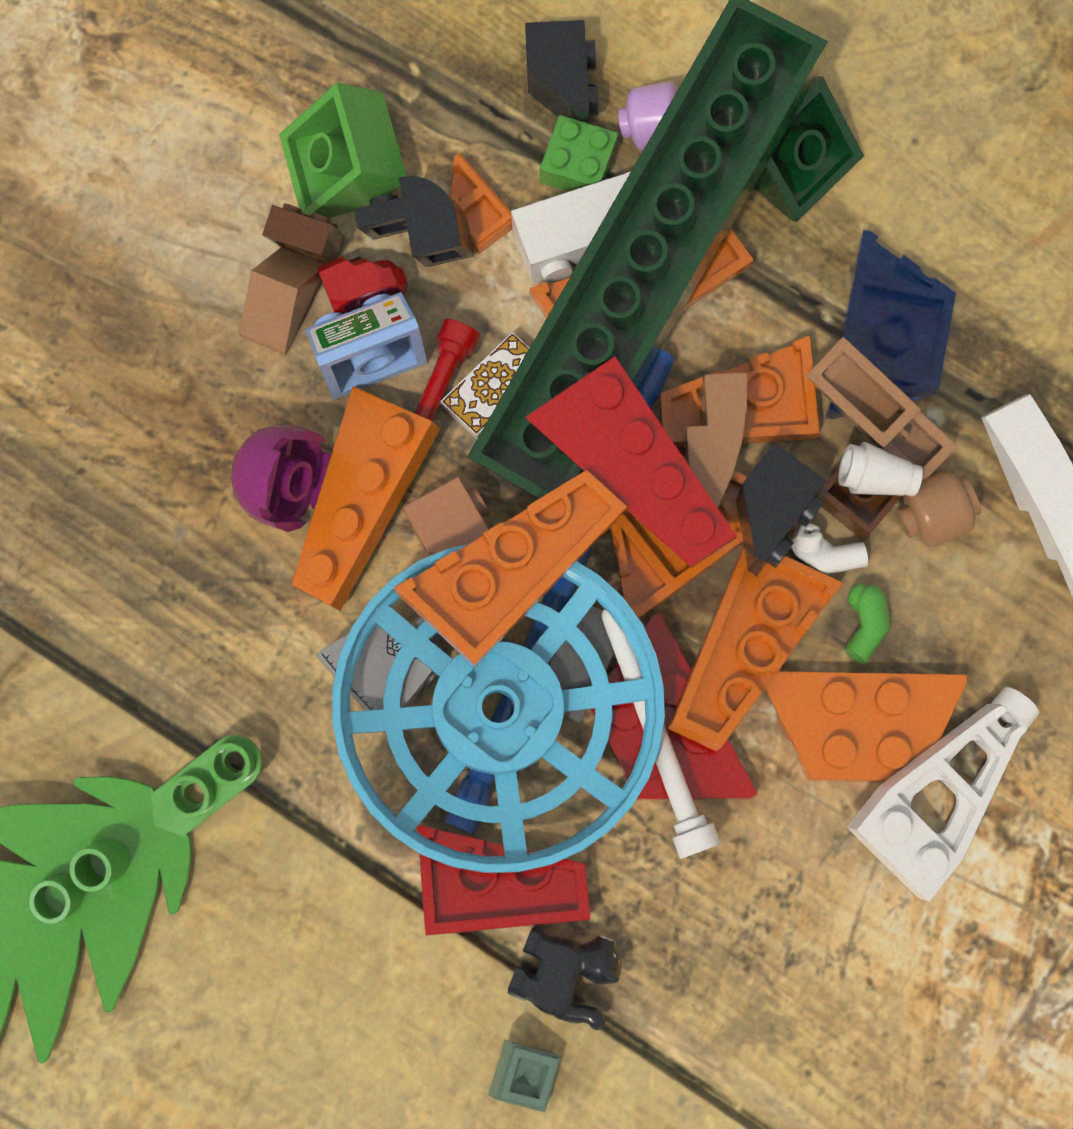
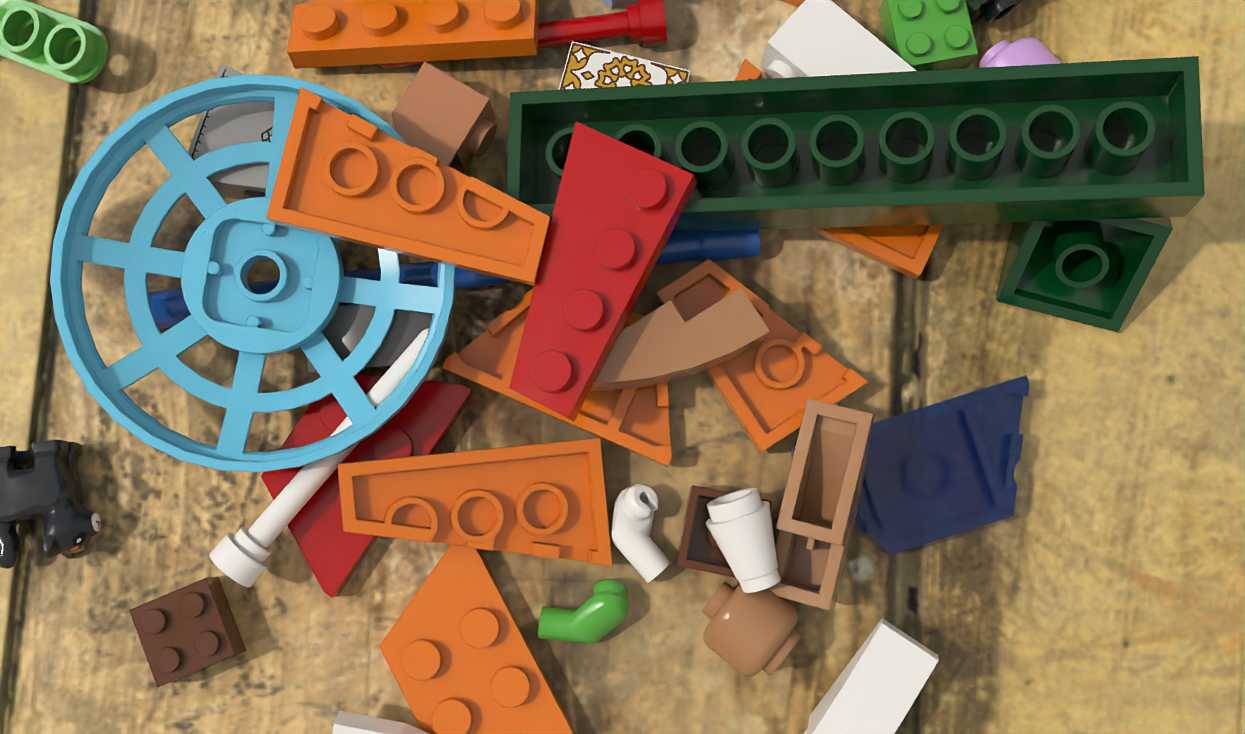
camera: 55 degrees right, 5 degrees up
(478, 901) = (104, 446): red wing -> none
(724, 914) = (187, 630): none -> reddish brown piece
(772, 503) = (644, 442): black slope -> none

